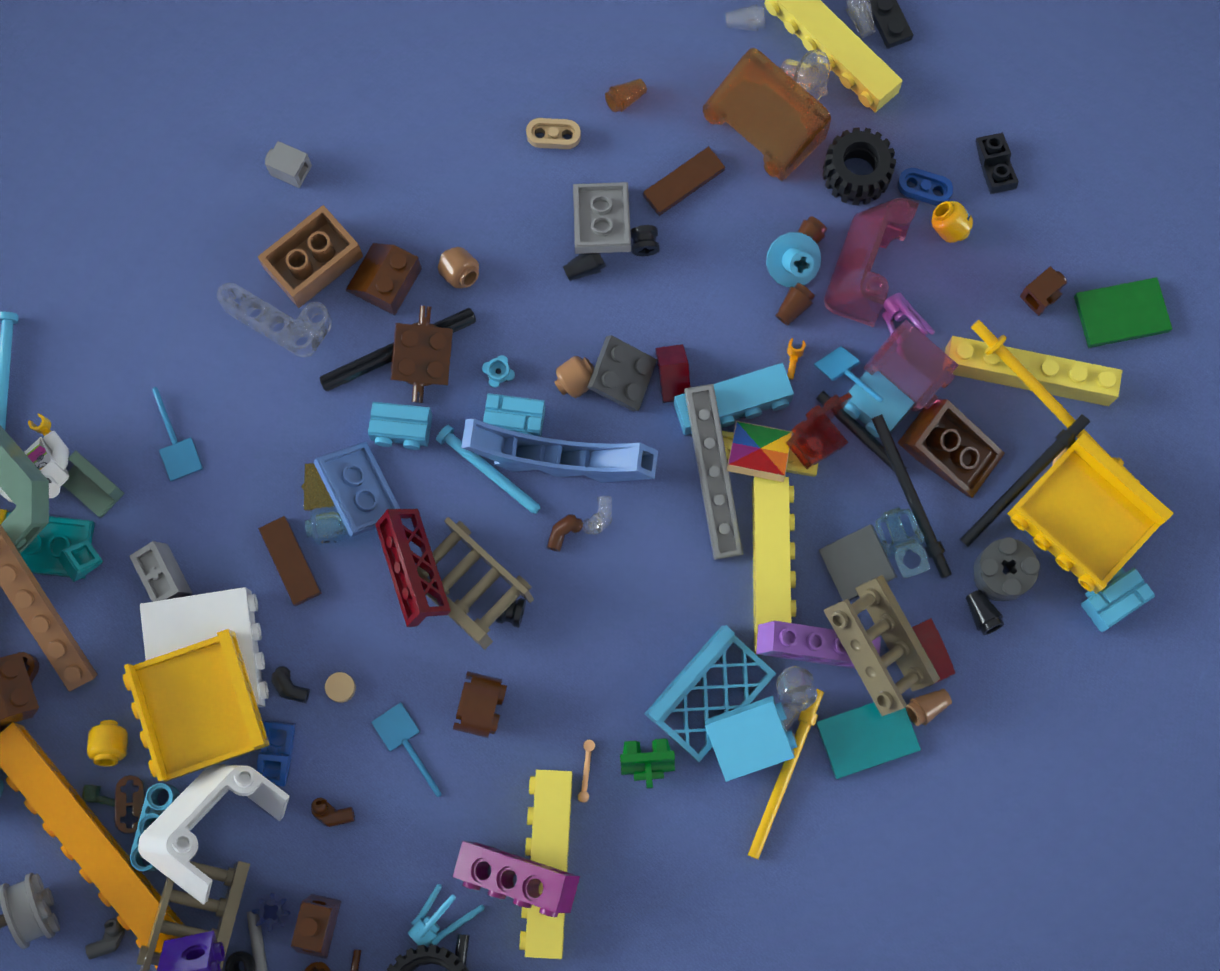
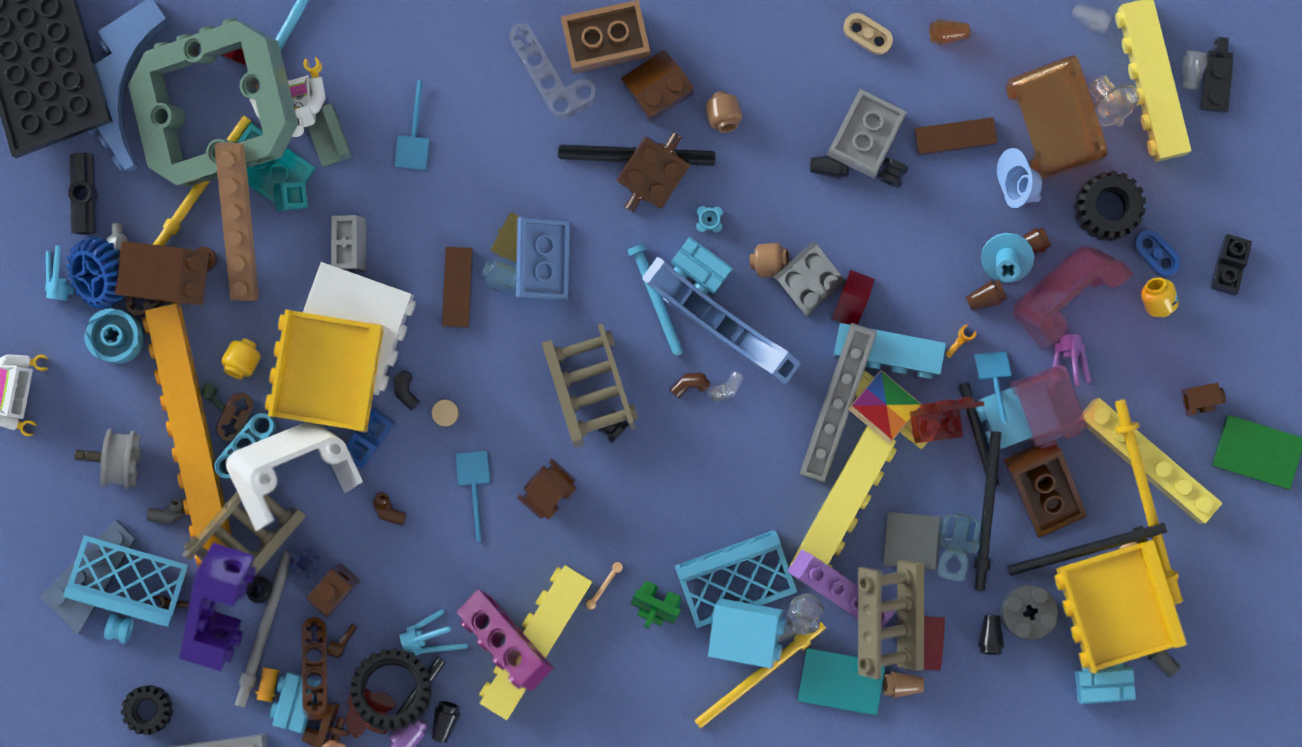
camera: 30 degrees right, 10 degrees up
(400, 425) = (604, 222): medium azure brick -> none
(404, 565) = (547, 346): dark red fence -> none
(762, 185) = (1018, 179): none -> light blue piece
(1158, 548) = (1165, 662): none -> dark grey pin

